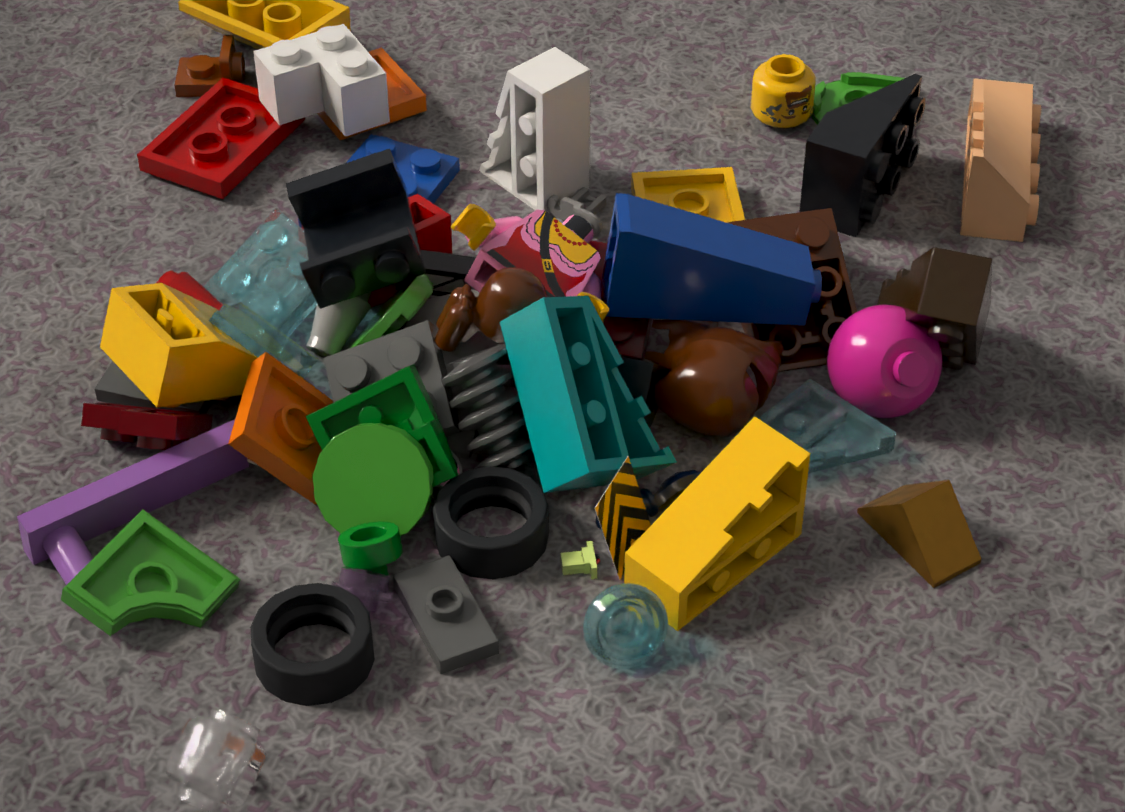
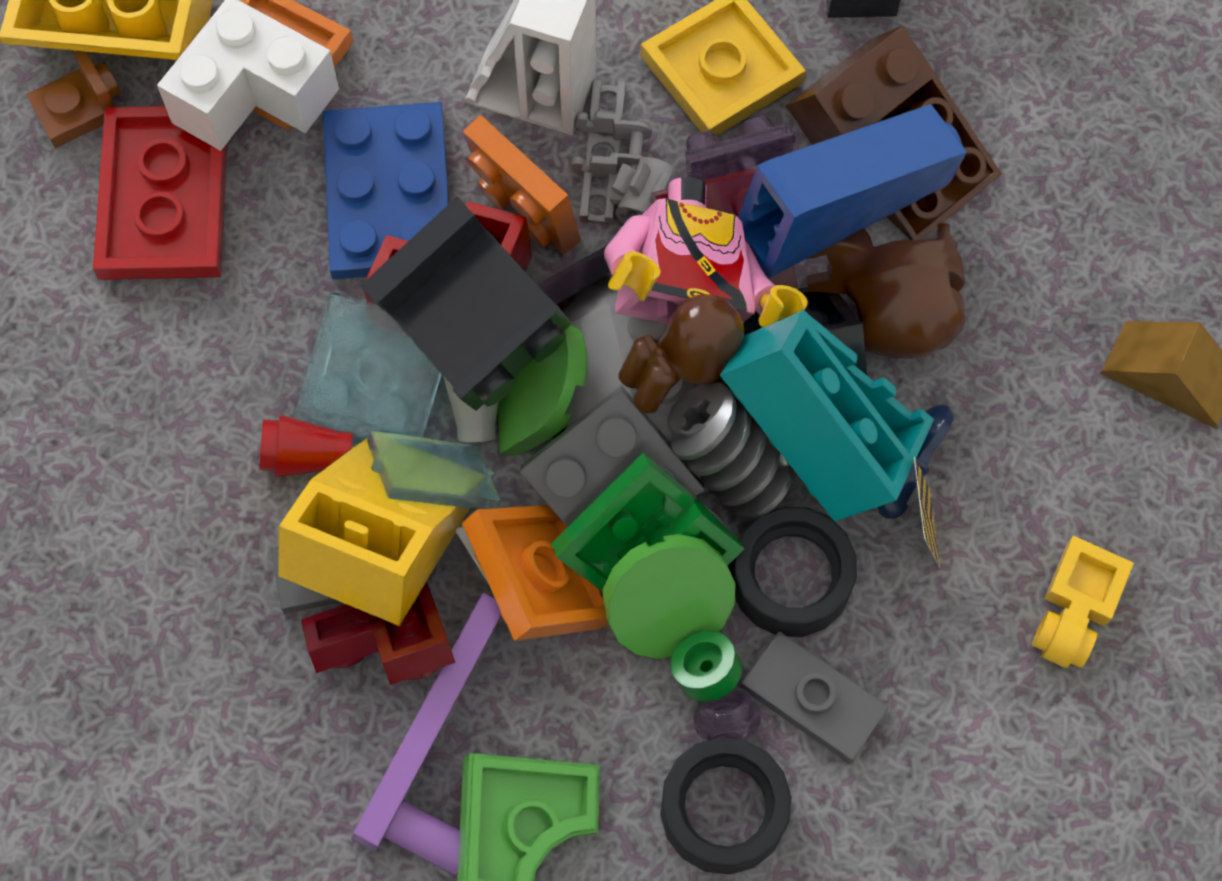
camera: 30 degrees left, 25 degrees up
(457, 177) = (515, 180): none -> orange plate
(580, 561) = (896, 567): yellowish green piece -> none
(625, 625) = (994, 631): clear light blue cone -> none
(723, 523) = (1017, 478): yellow wedge -> none
(727, 631) = (1089, 588): none -> yellow plate
(828, 427) = (1015, 305): clear light blue wing -> none
(883, 362) = (1047, 193): dark pink brick -> none
(948, 297) = (1075, 113): dark brown wedge -> none

